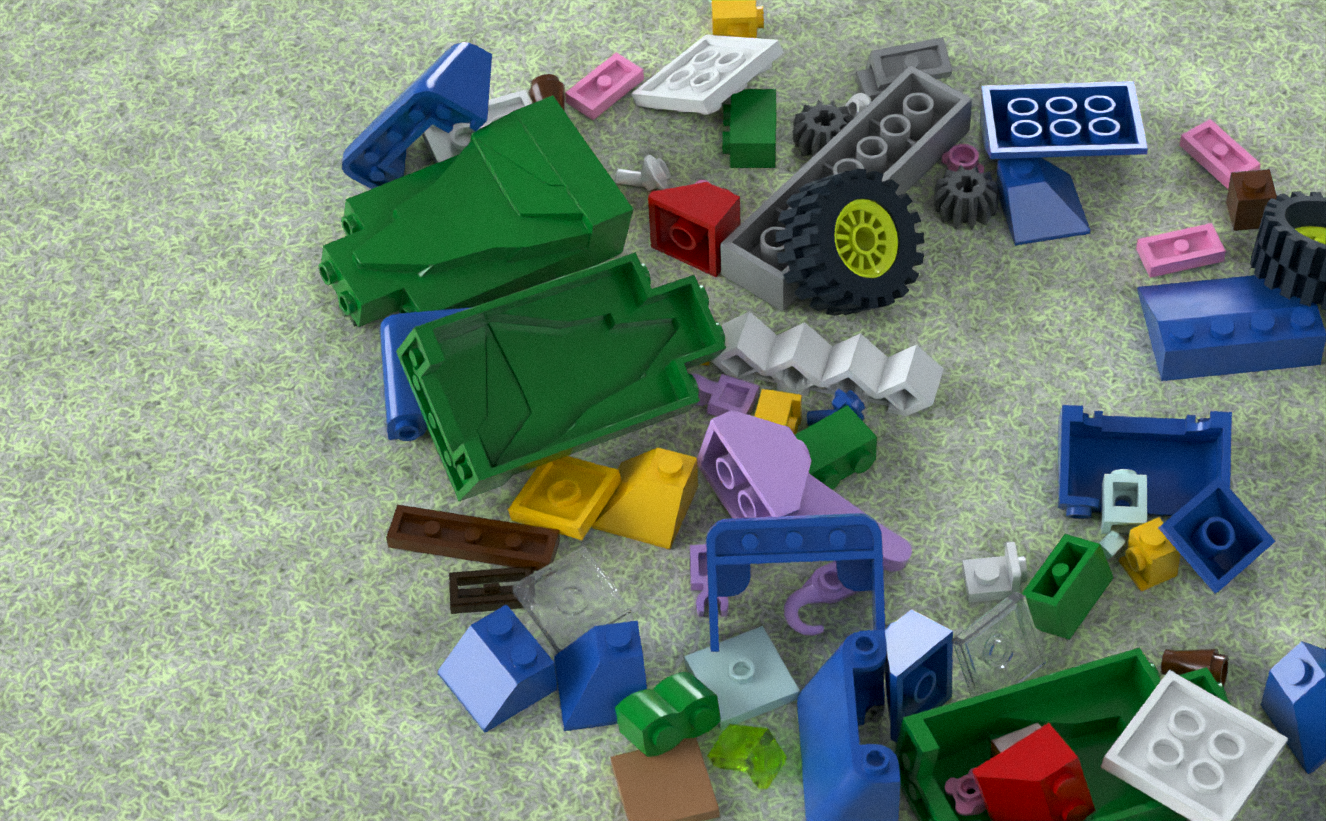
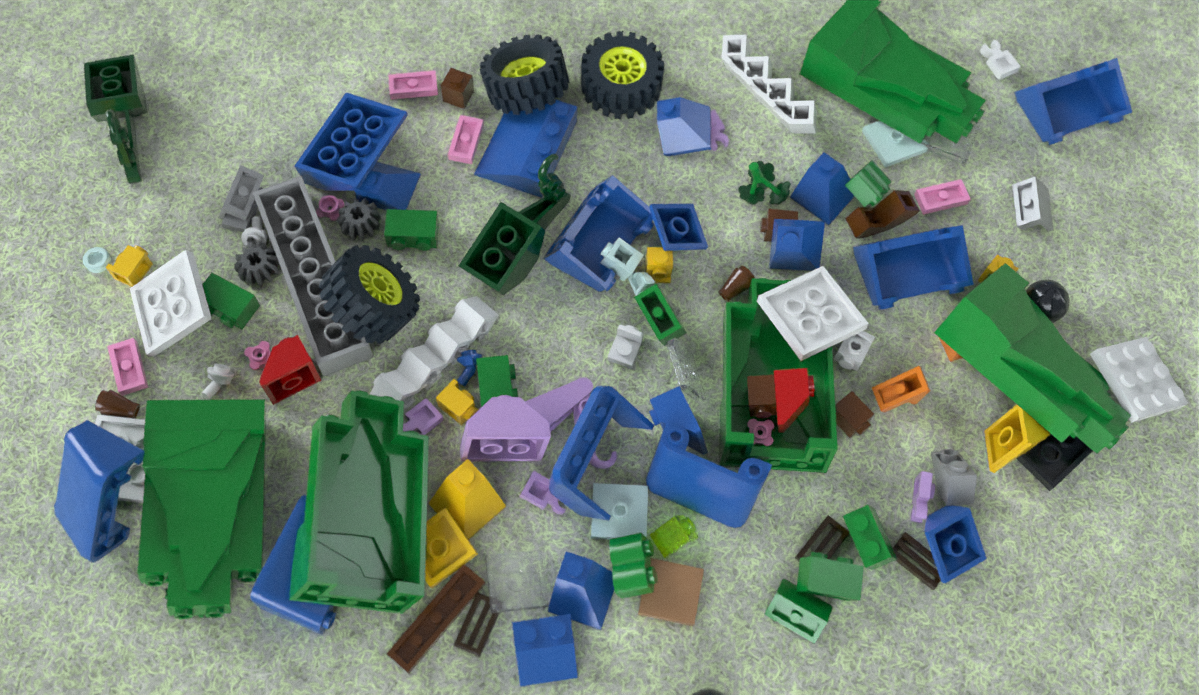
camera: 70 degrees left, 15 degrees up
(993, 257) = (411, 229): none -> green brick
(1044, 357) = (514, 239): none -> dark green slope

